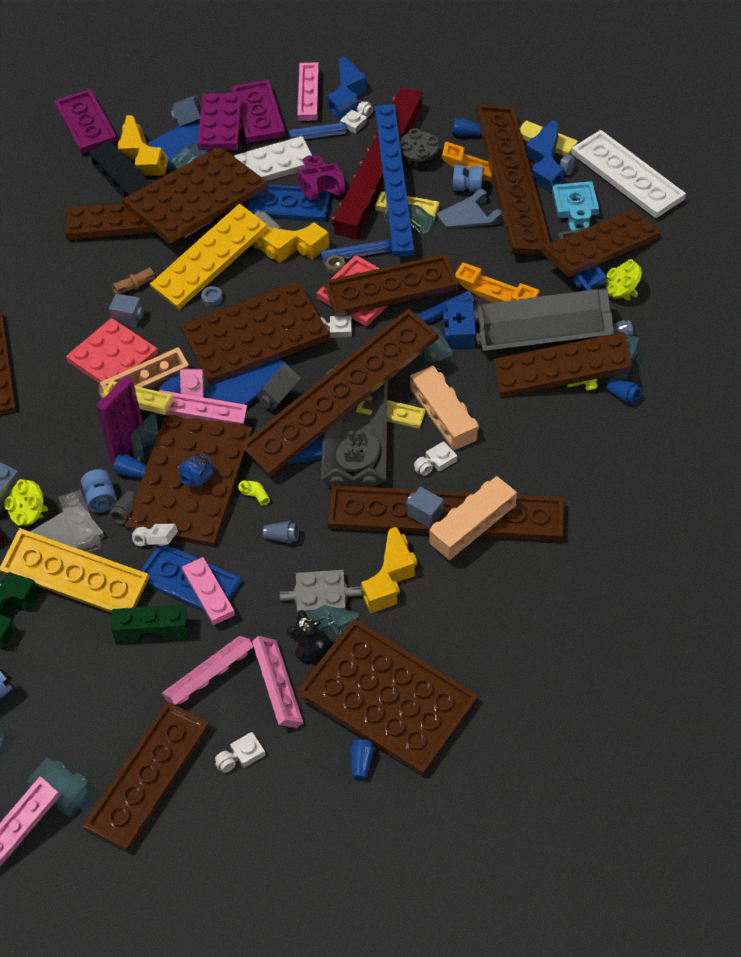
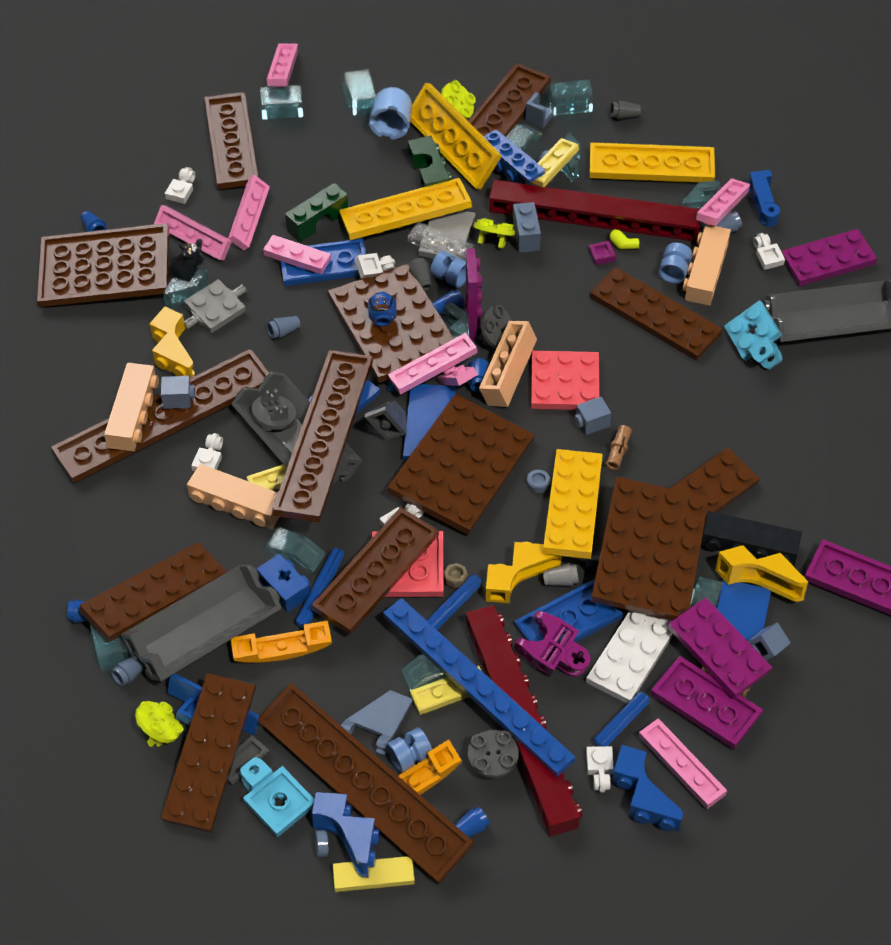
camera: 140 degrees right, 0 degrees up
(148, 399) = (483, 325): light yellow tile -> none
(254, 489) = (340, 345): neon yellow arm -> none
(628, 173) = (248, 877): white plate -> none

